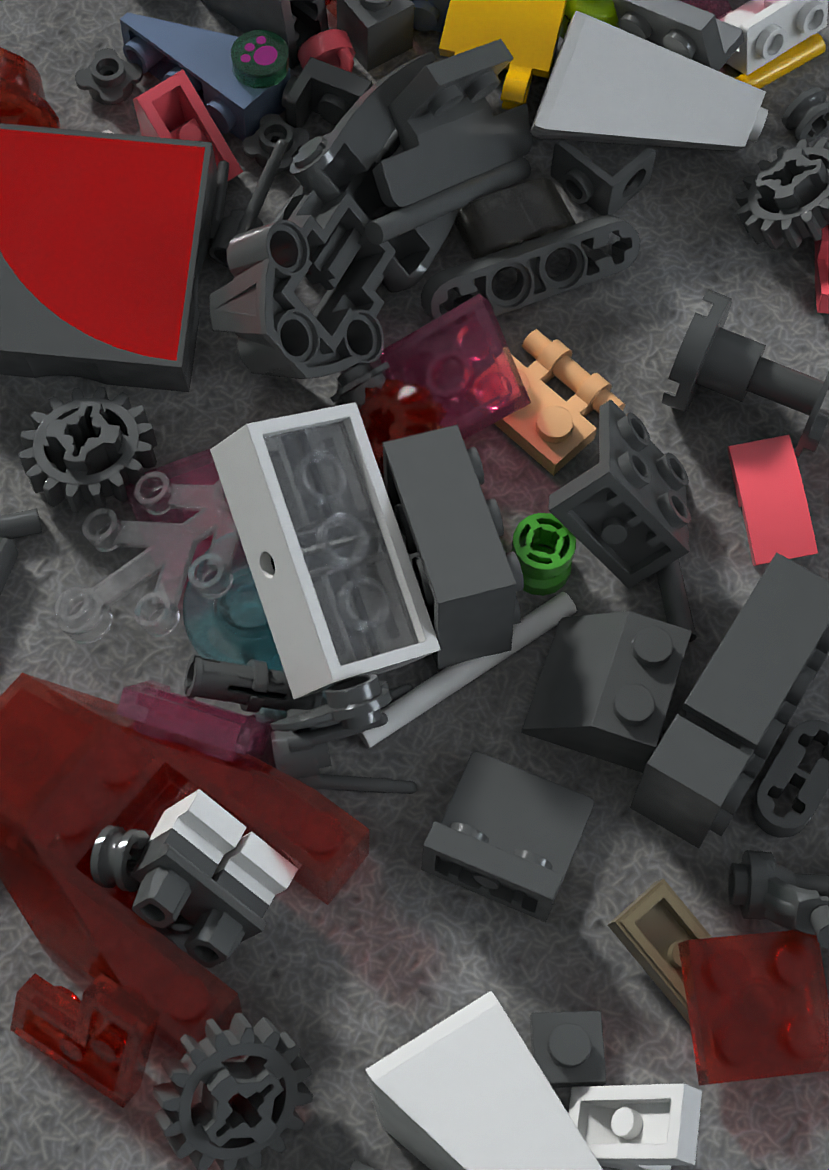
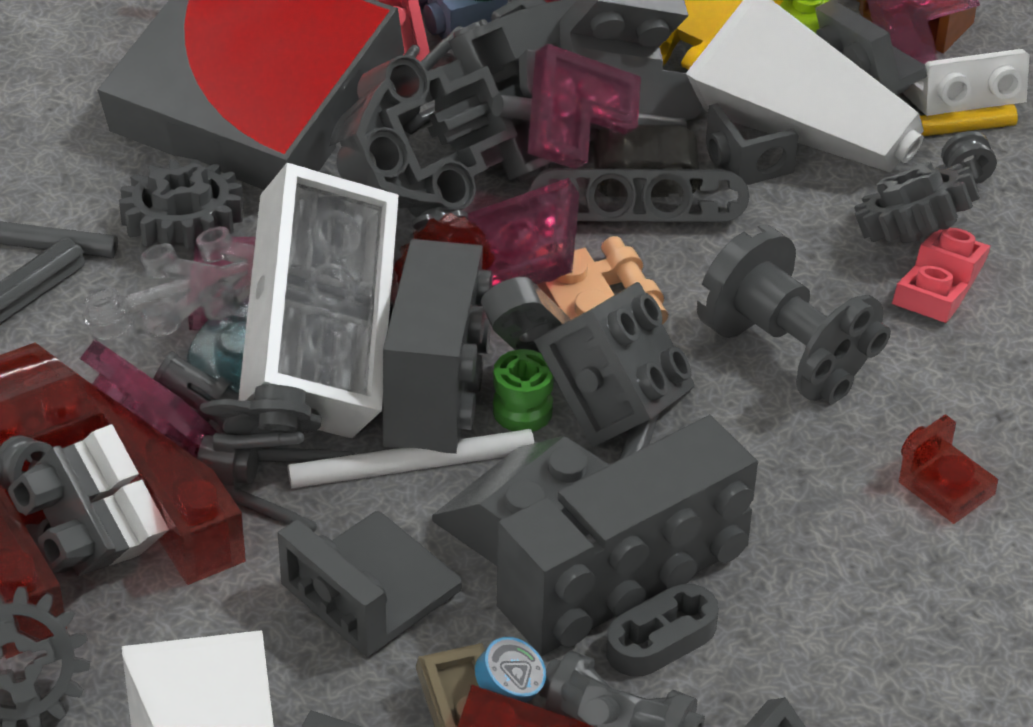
camera: 25 degrees right, 20 degrees down
(439, 193) = (571, 95): none -> clear pink plate
(532, 489) = (521, 312): none -> dark grey beam
(707, 902) = (511, 669): none -> tile
(772, 499) = (762, 412): coral slope -> none

